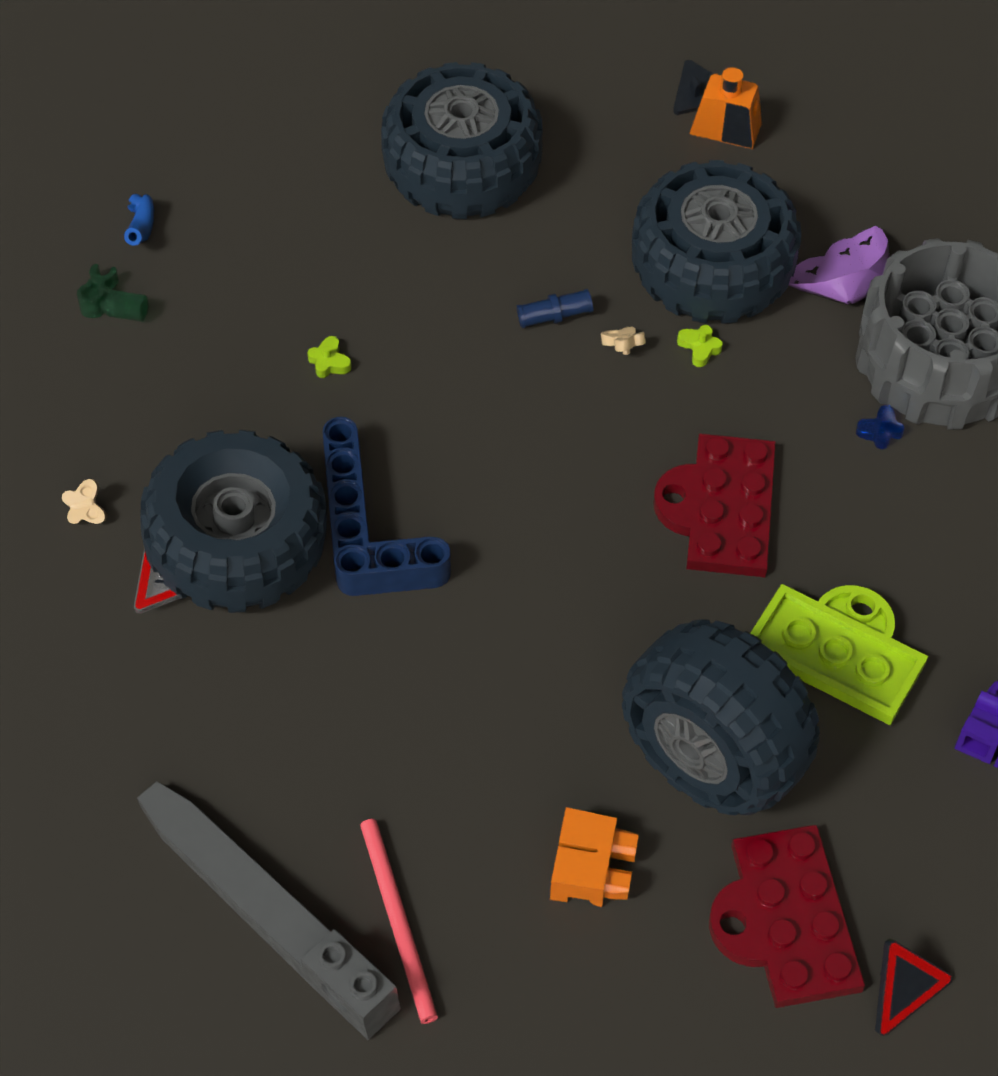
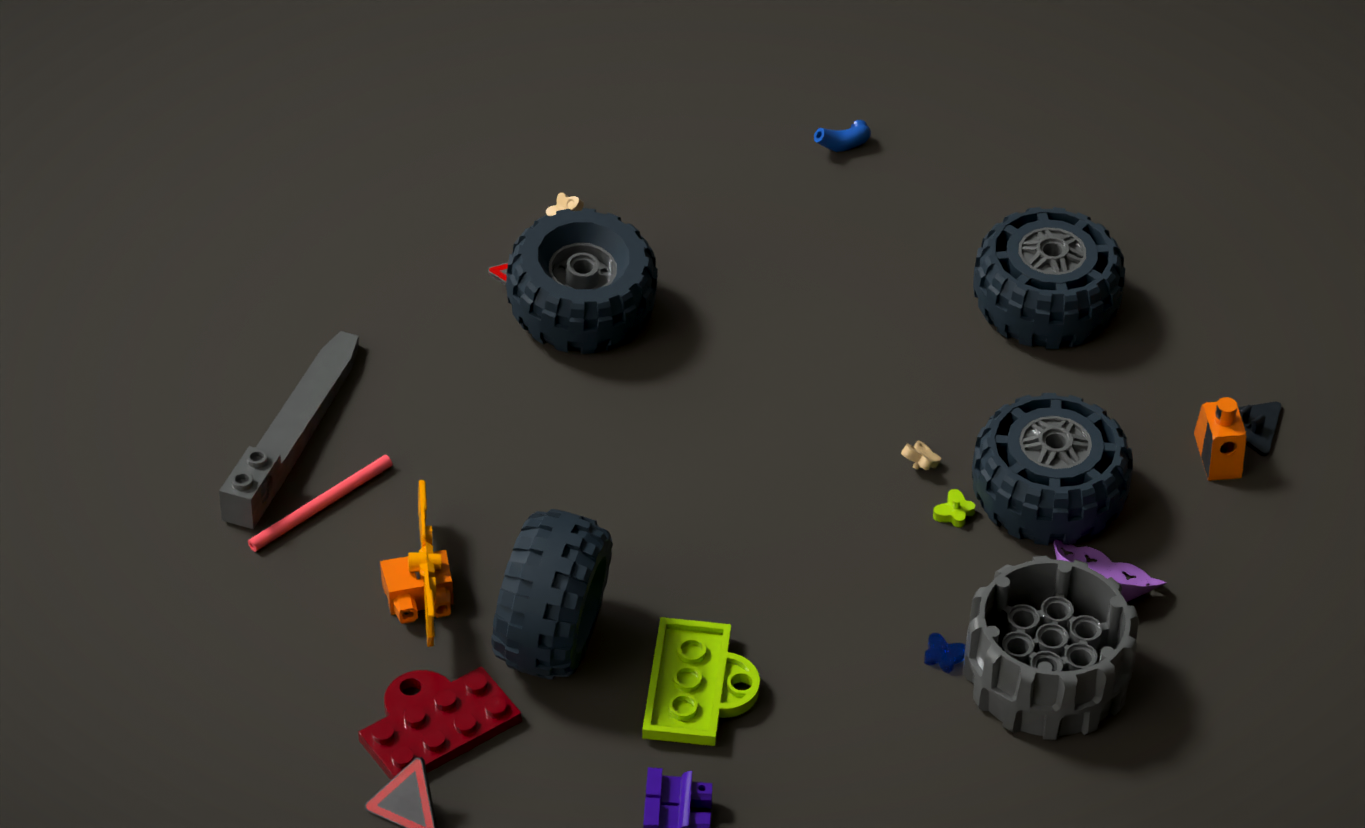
camera: 65 degrees right, 10 degrees down
(97, 298) = (755, 146): clear green bar -> none
(328, 359) = (787, 292): lime piece -> none
(371, 558) = (609, 366): dark blue beam -> none
(554, 308) = (925, 403): dark blue pin -> none
(584, 833) = (426, 563): none -> light orange piece
(723, 504) = (797, 573): dark red plate -> none

